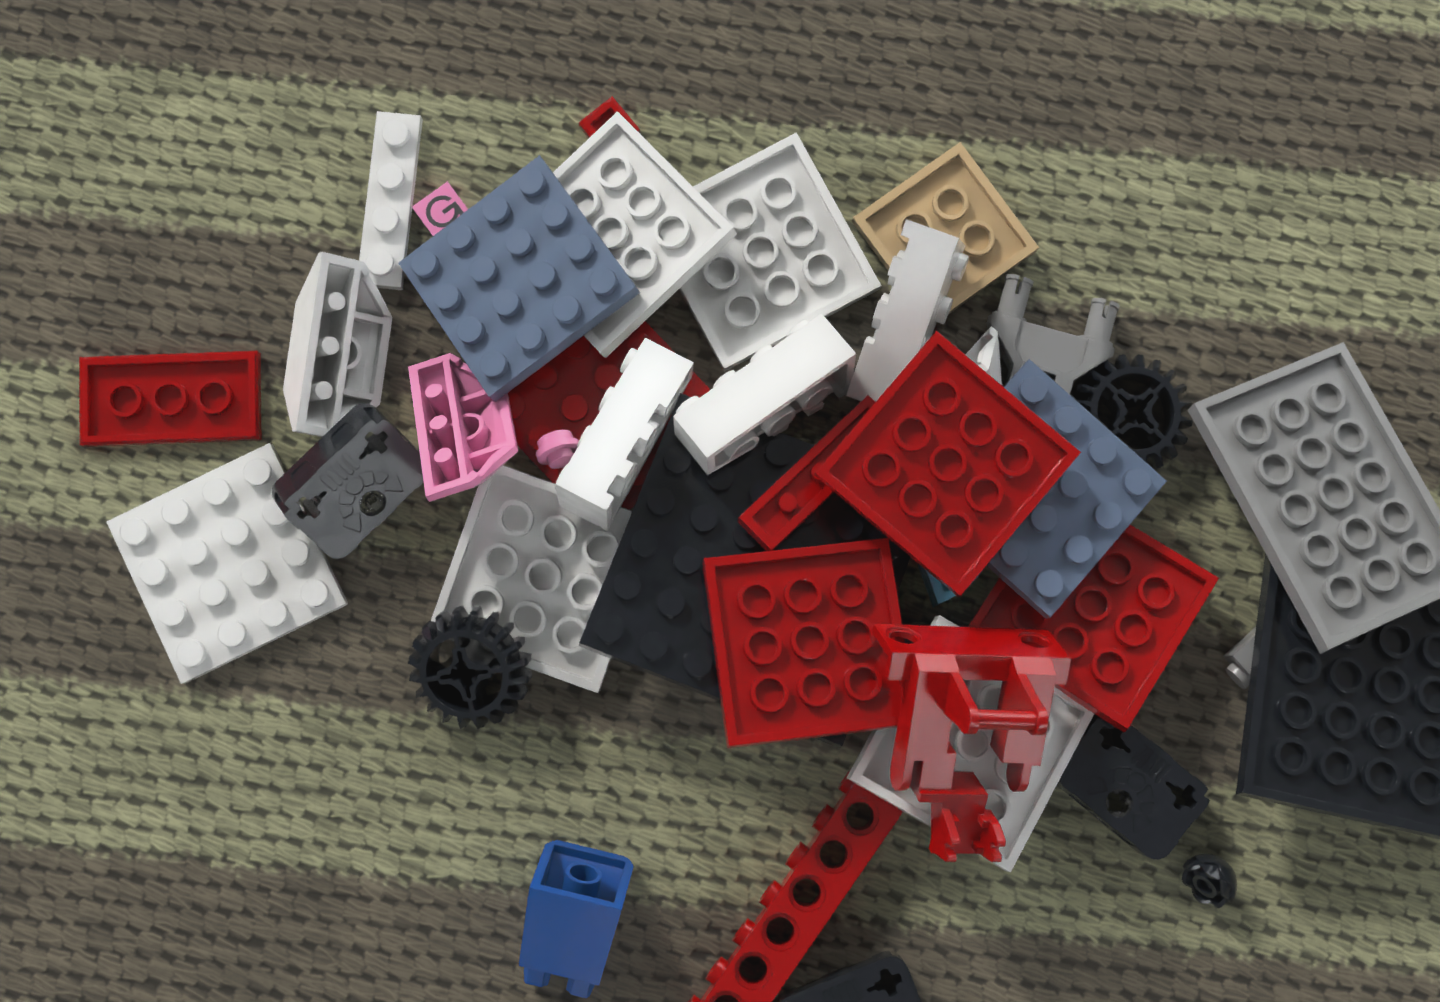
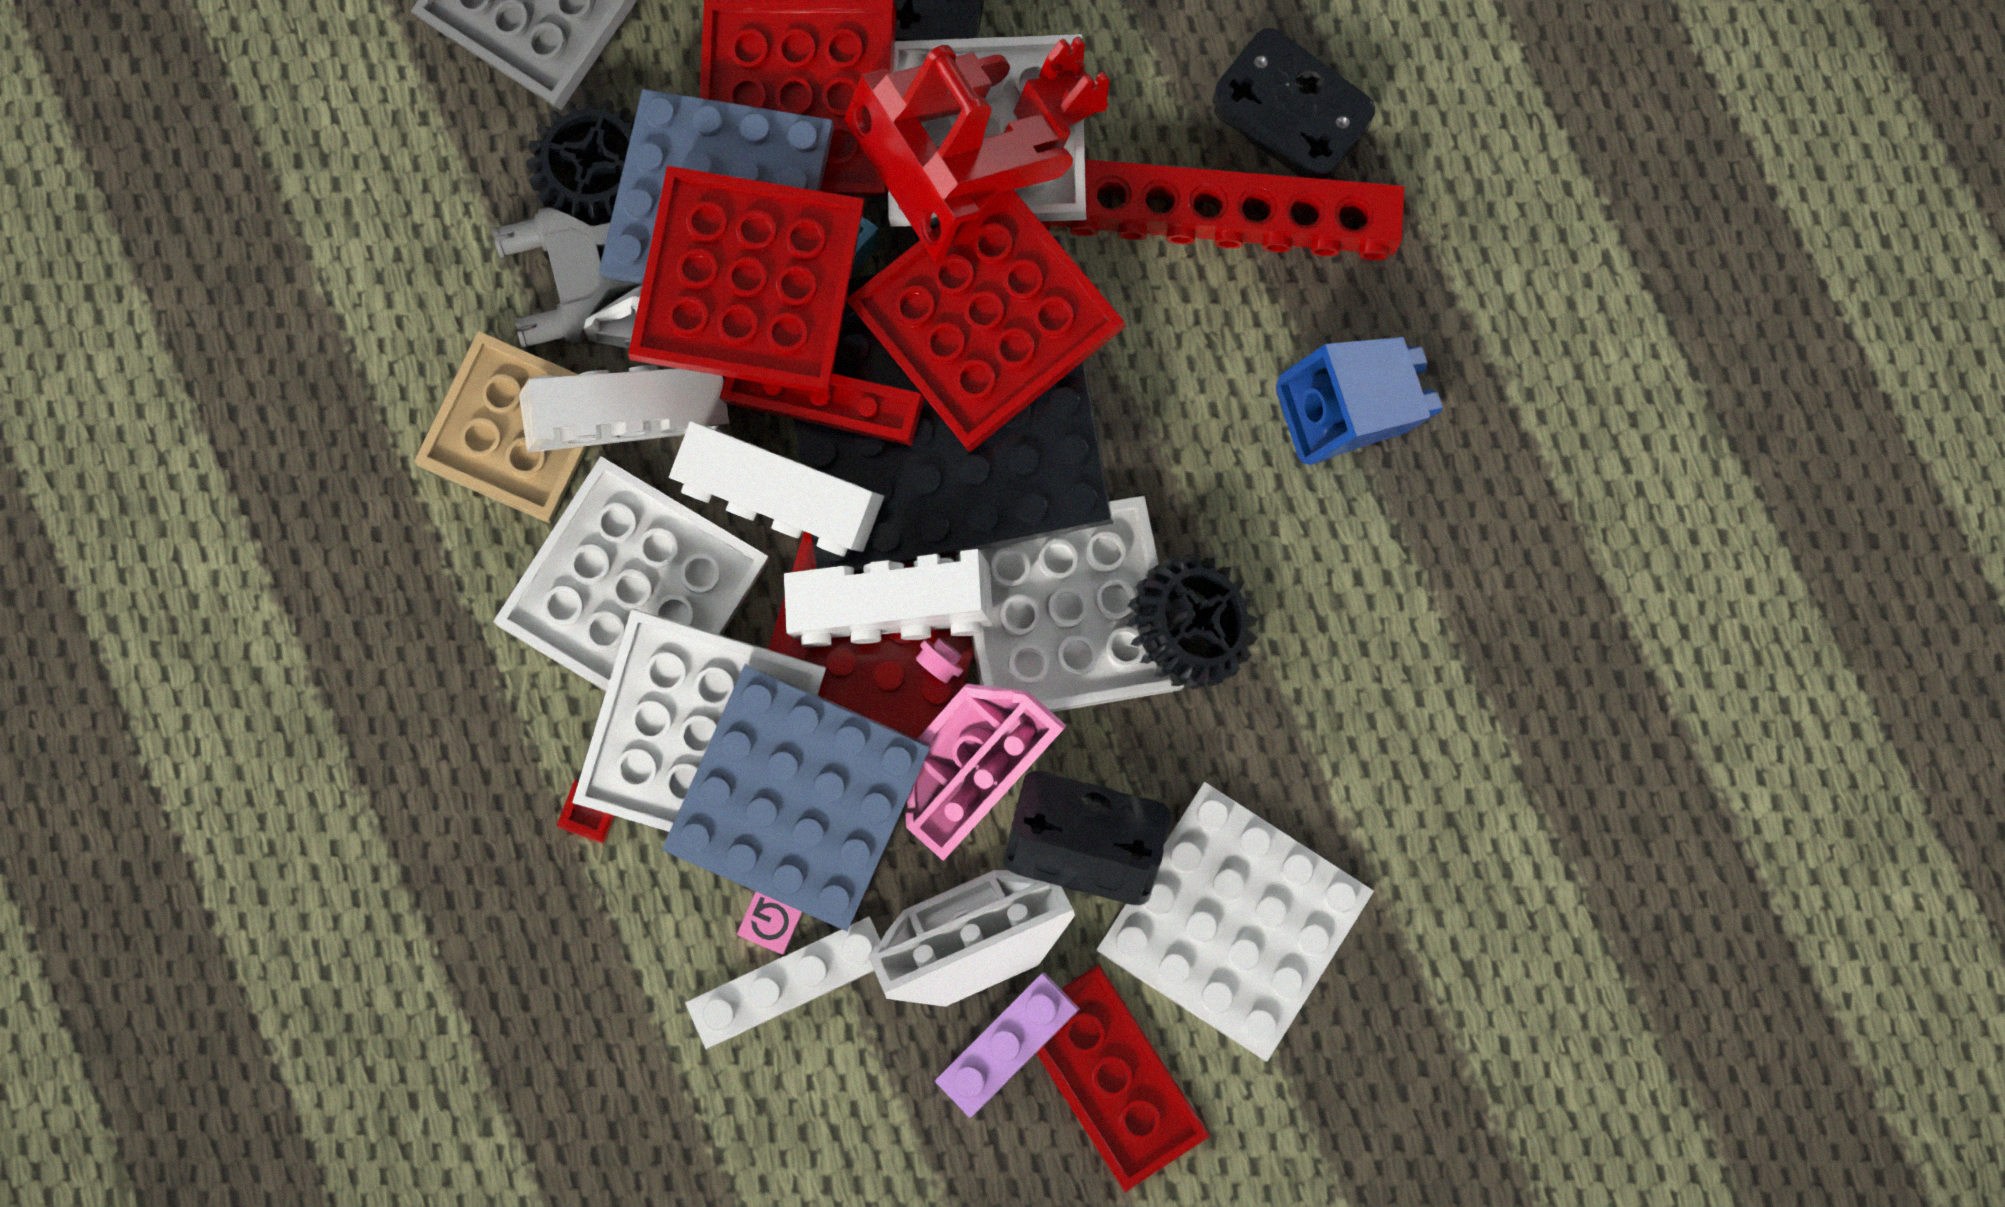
camera: 125 degrees left, 5 degrees down
(239, 333) = (1007, 1045): none -> lavender plate

